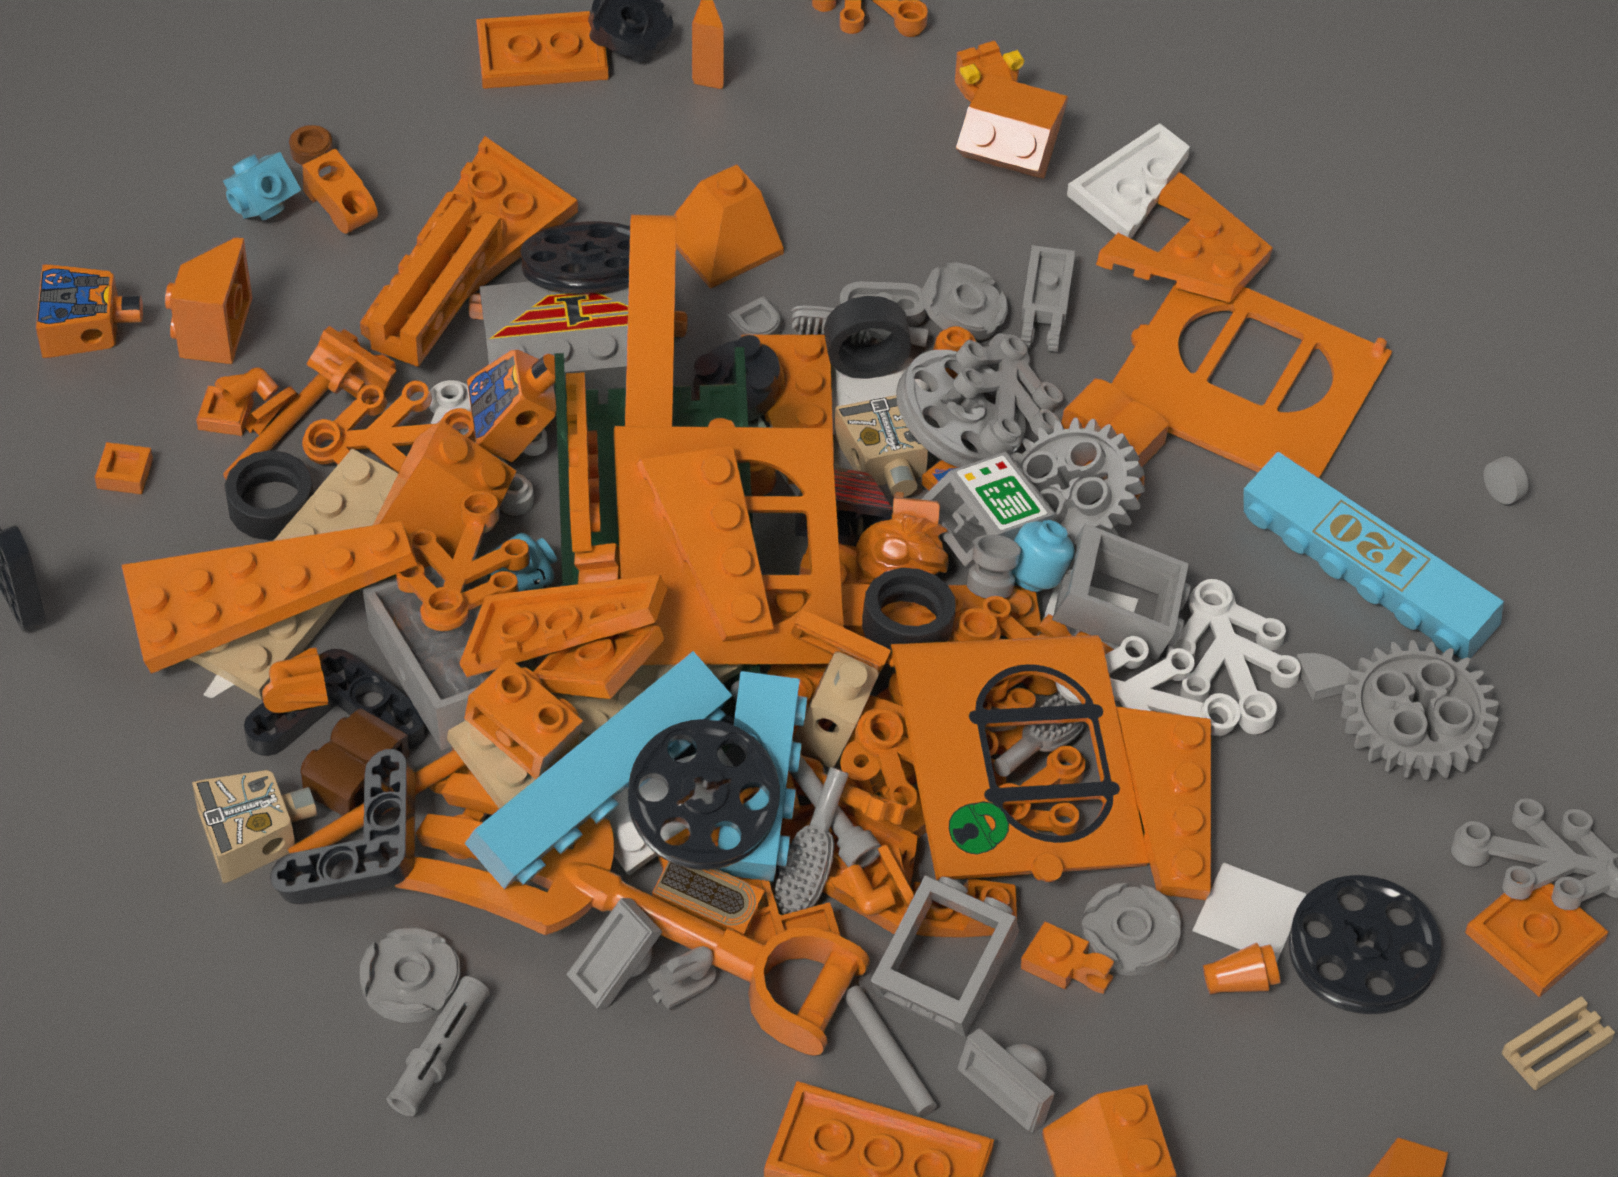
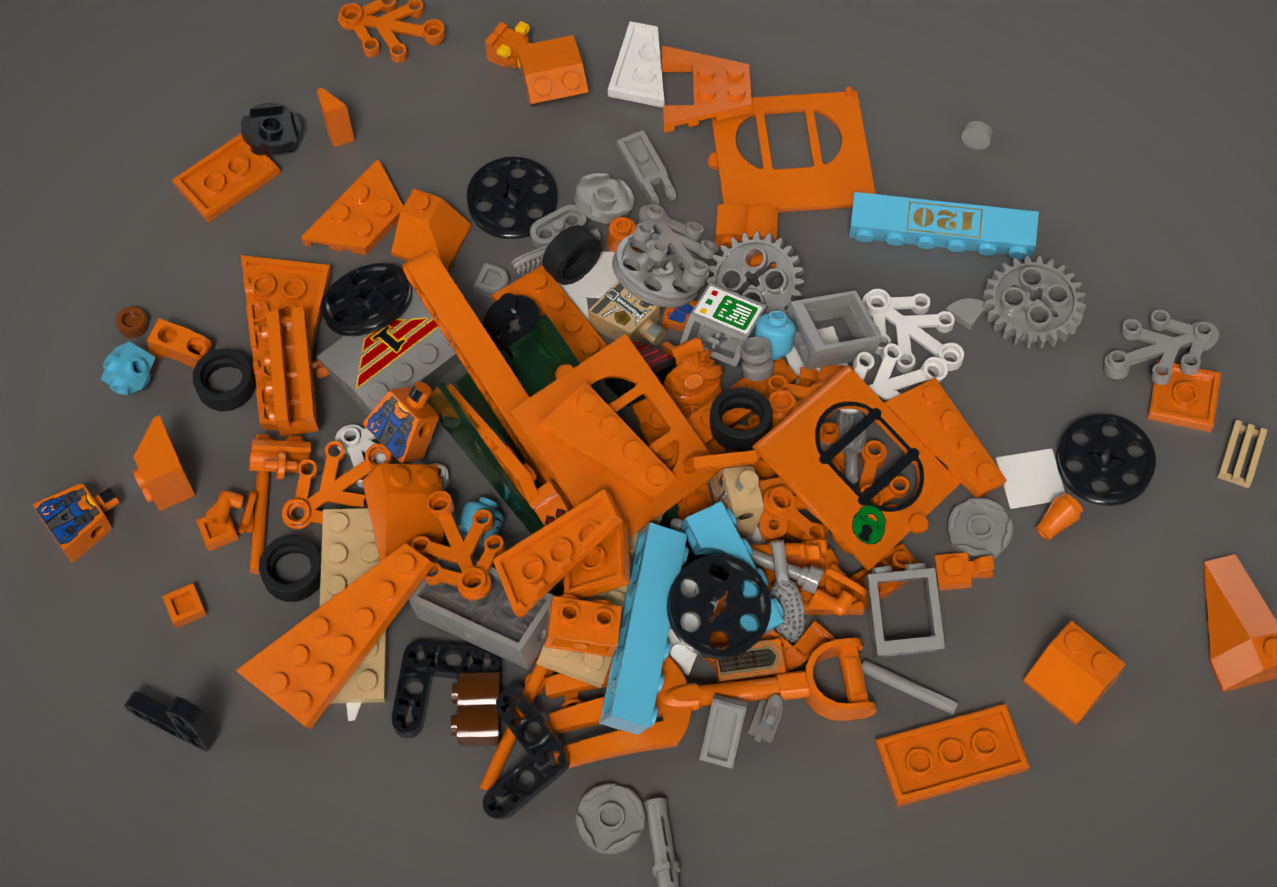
camera: 30 degrees left, 10 degrees up
(249, 820) = (444, 785): tan torso -> none
(295, 684) = (411, 690): orange piece -> none
(351, 234) = (220, 359): none -> black tyre
(658, 169) = (359, 215): none -> orange wing
(842, 233) = (502, 206): none -> black wedge
(1009, 1077) = (988, 661): light grey tile -> none

